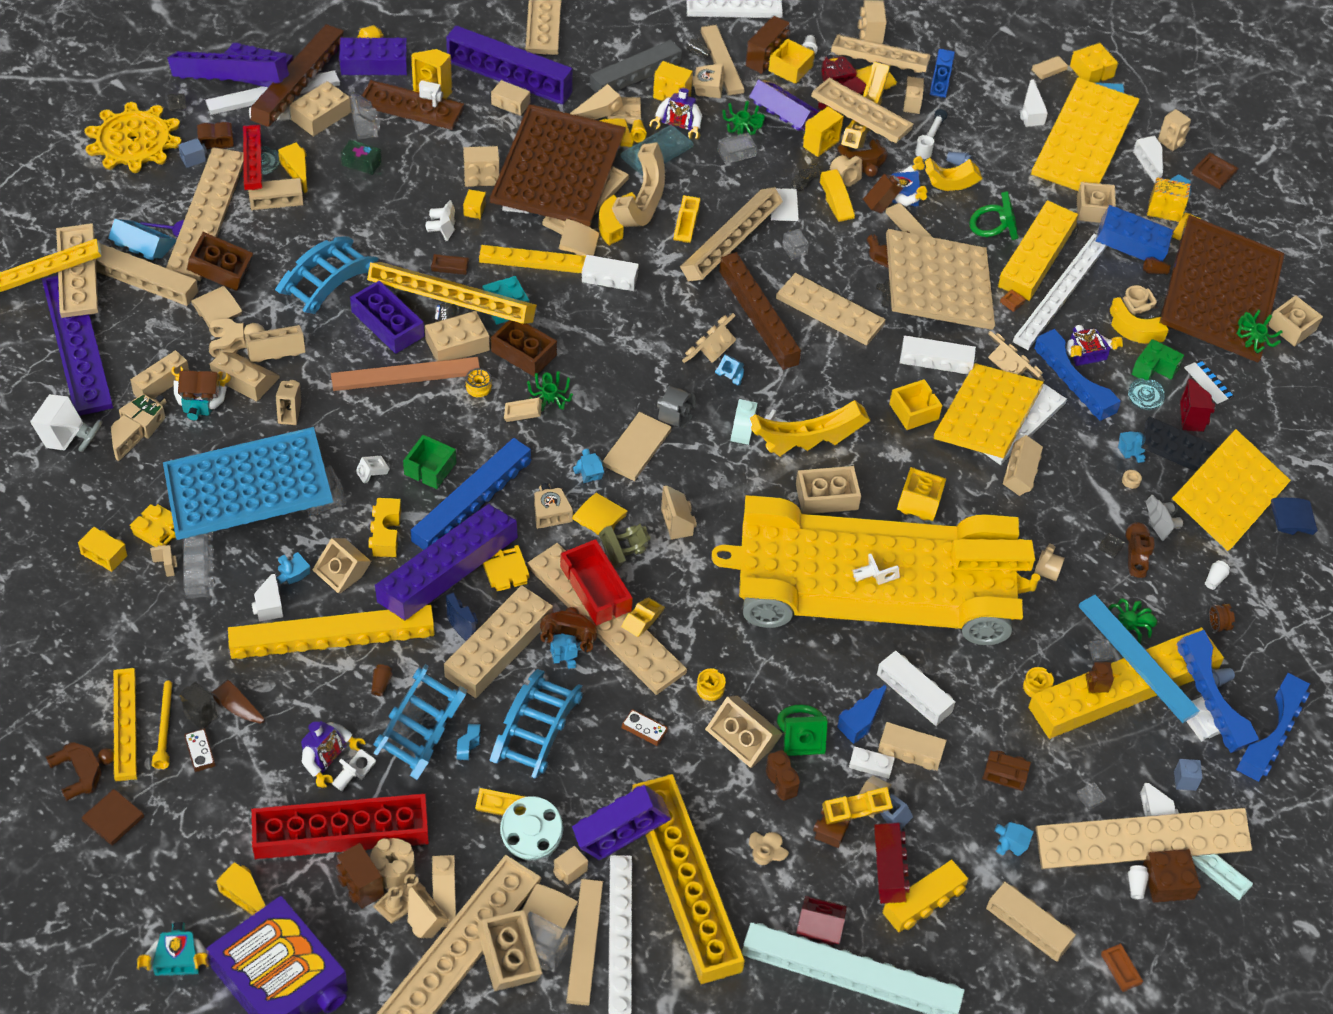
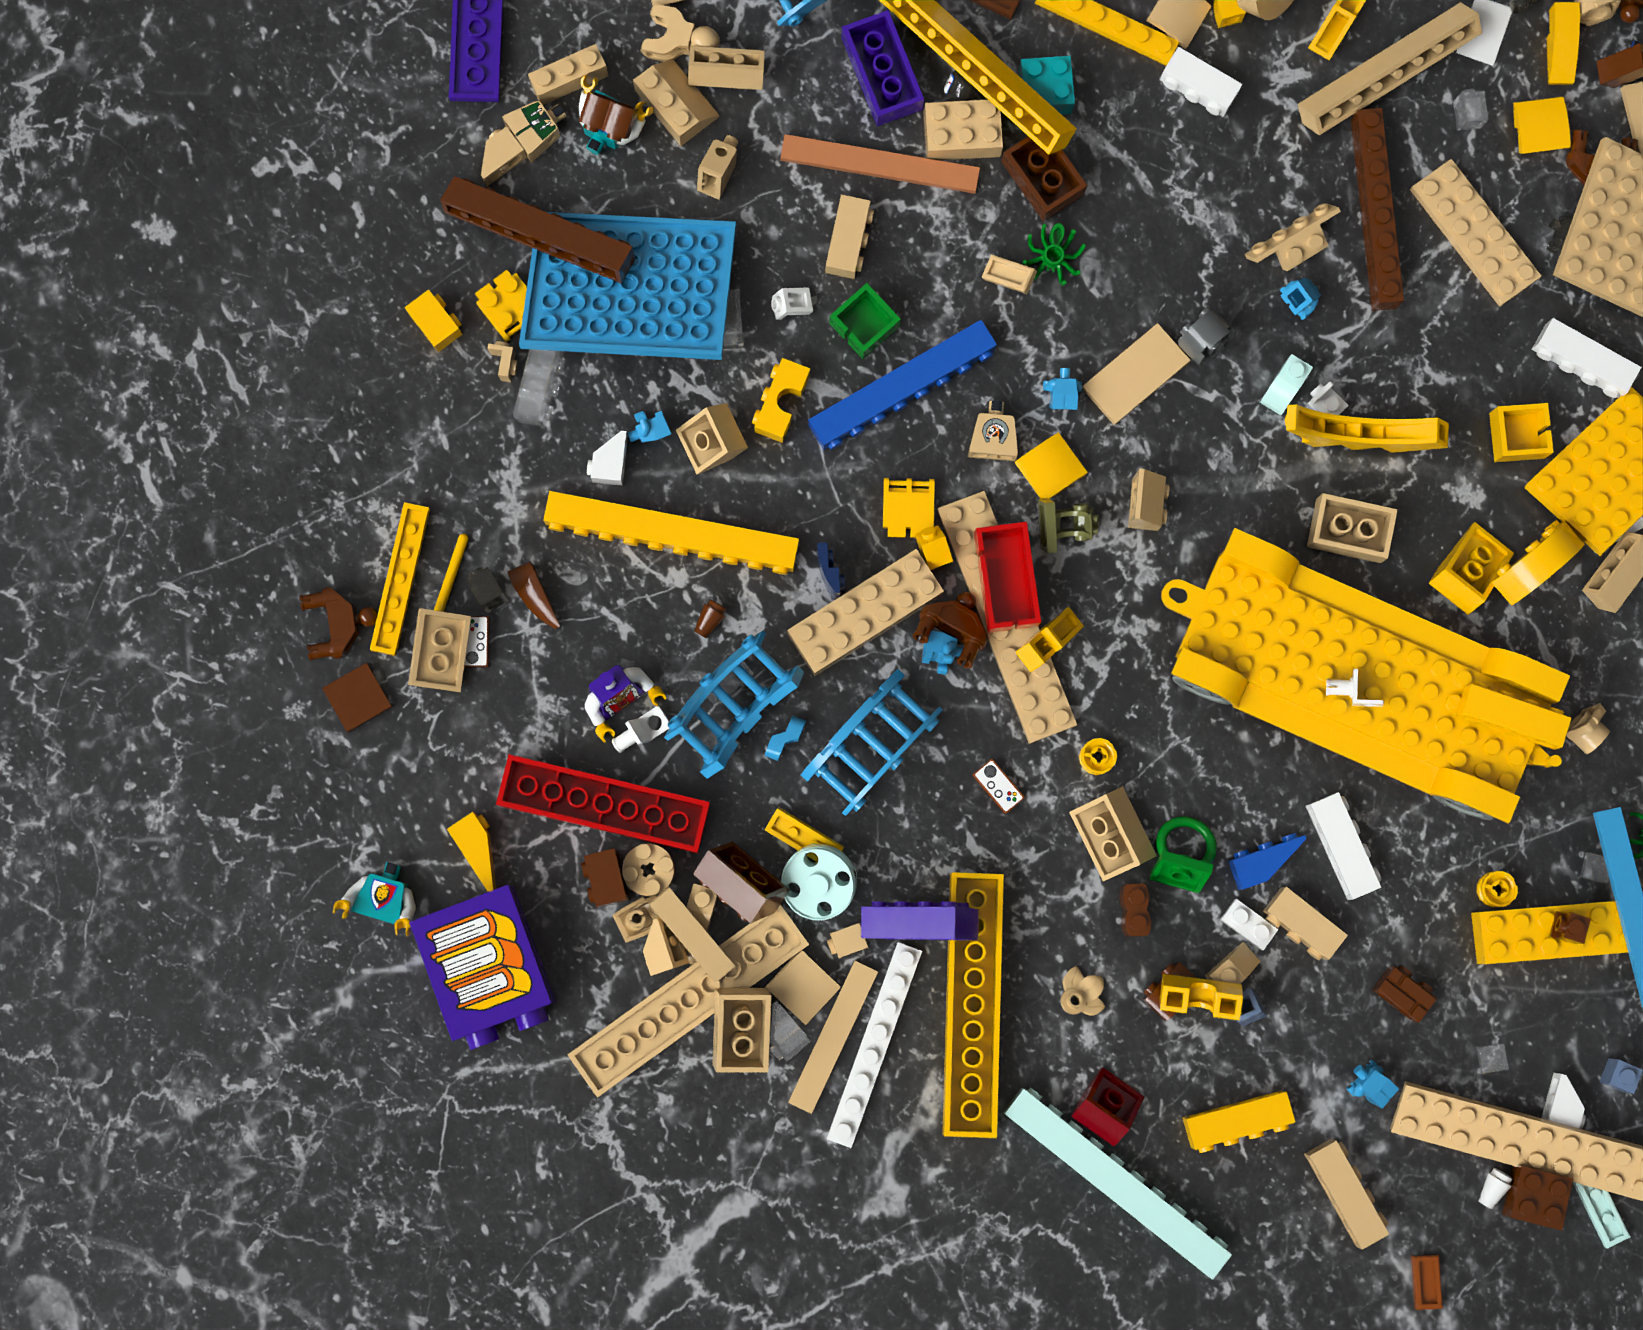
camera: 20 degrees right, 30 degrees up
(59, 423) = (428, 118): white piece -> none
(167, 467) = (538, 229): none -> reddish brown brick
(172, 757) = (439, 650): none -> tan plate
(399, 418) = (849, 237): none -> tan brick
(443, 892) = (691, 934): none -> tan tile
(446, 561) = (837, 483): dark purple brick -> none
(469, 842) = (741, 882): none -> brick
(478, 382) = (961, 202): yellow wheel -> none
(534, 581) = (933, 547): none -> yellow brick
(845, 240) = (1542, 125): none -> yellow slope
(890, 863) = (1212, 1072): dark red brick -> none
(967, 461) = (1542, 560): none -> yellow brick

